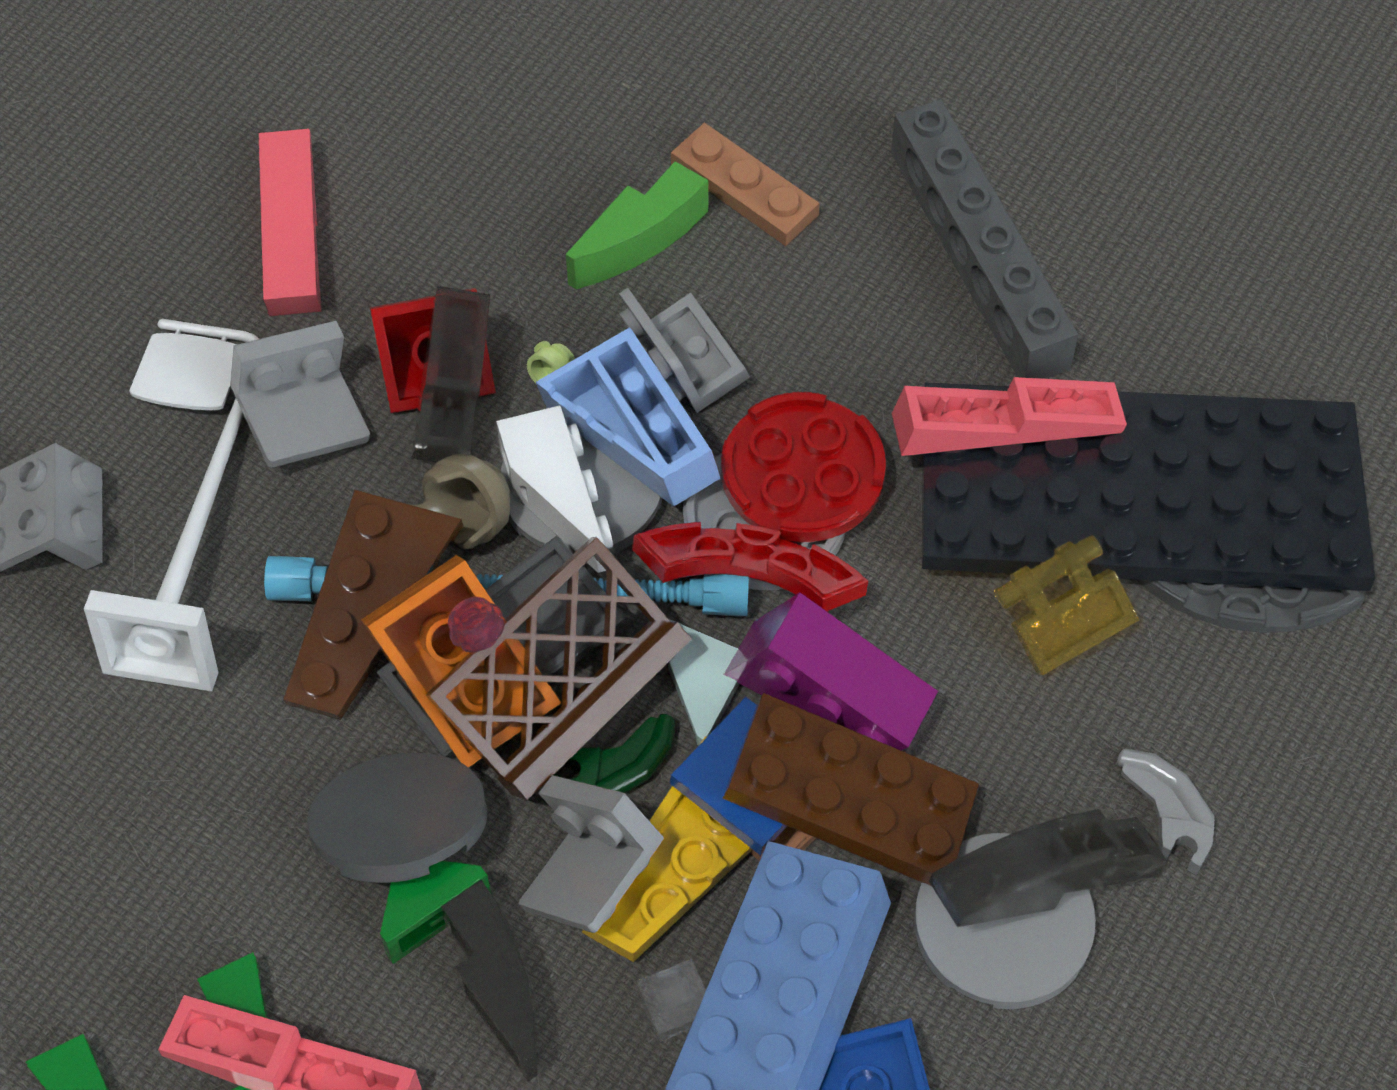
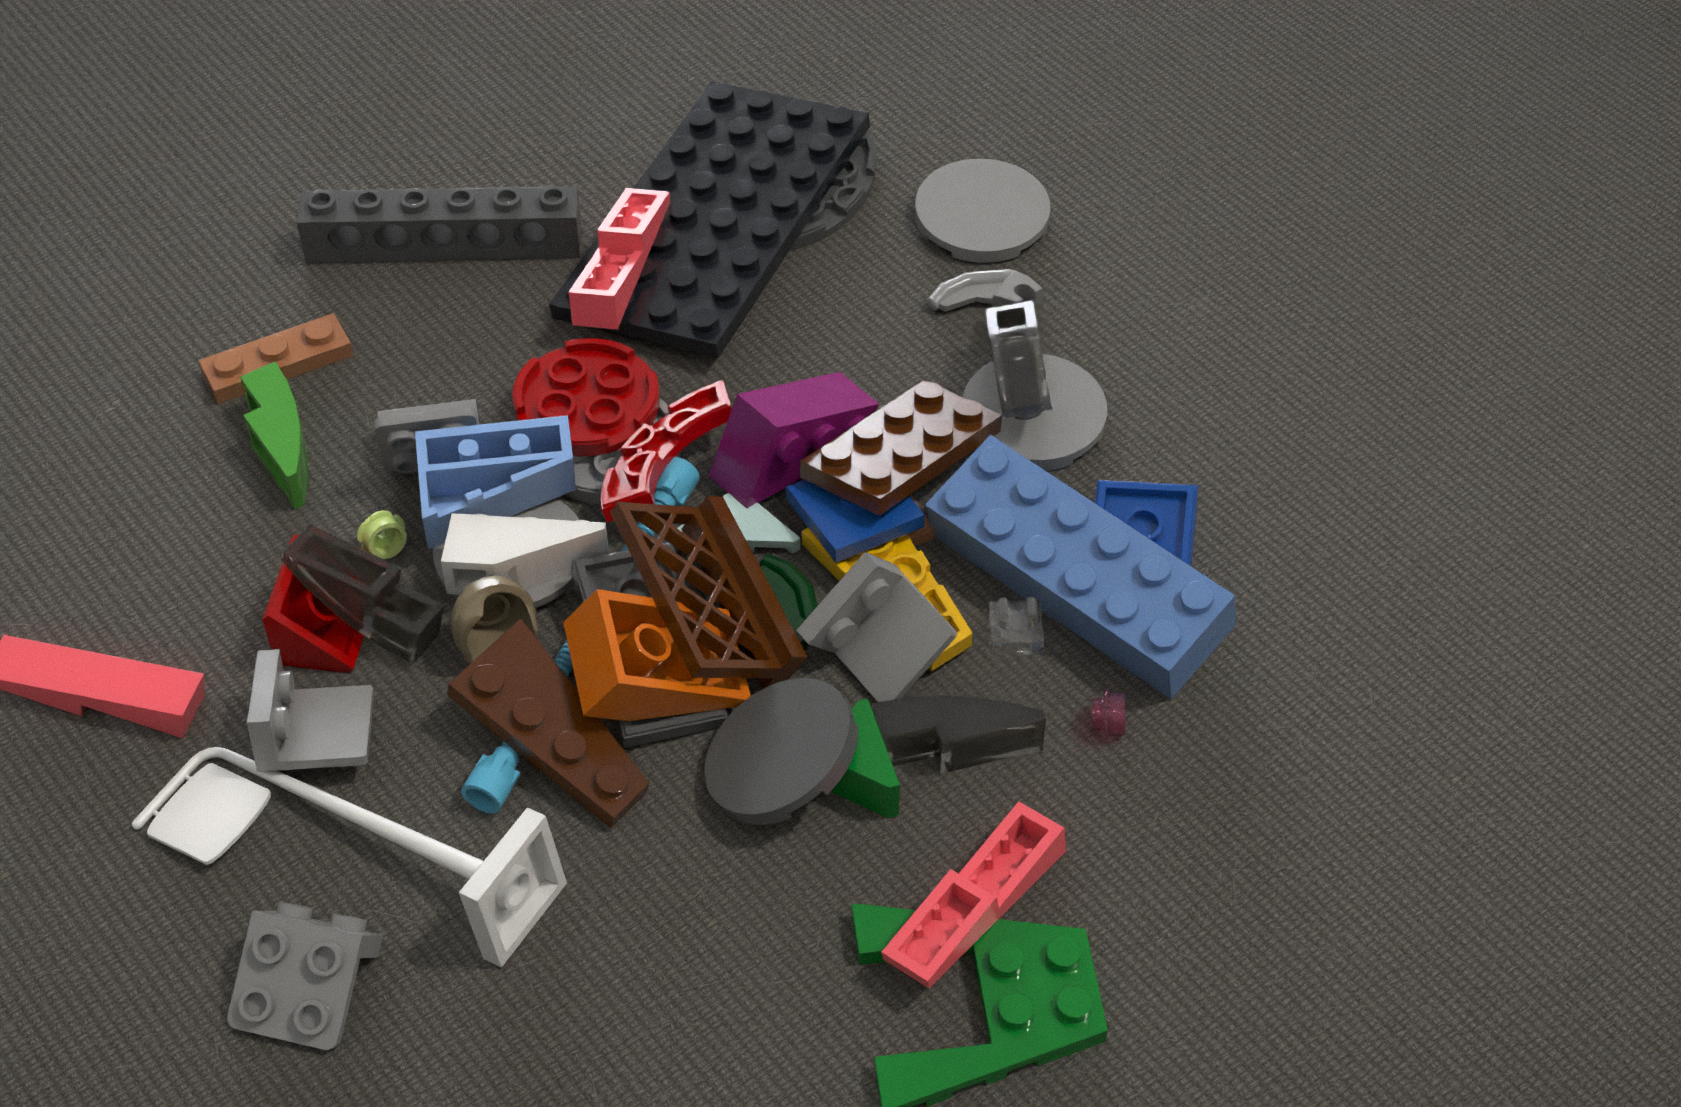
camera: 70 degrees left, 10 degrees down
(475, 624) = (653, 594): clear pink plate -> none
(1073, 620) = (812, 280): clear yellow plate -> none
(1305, 760) = (982, 210): none -> light grey tile

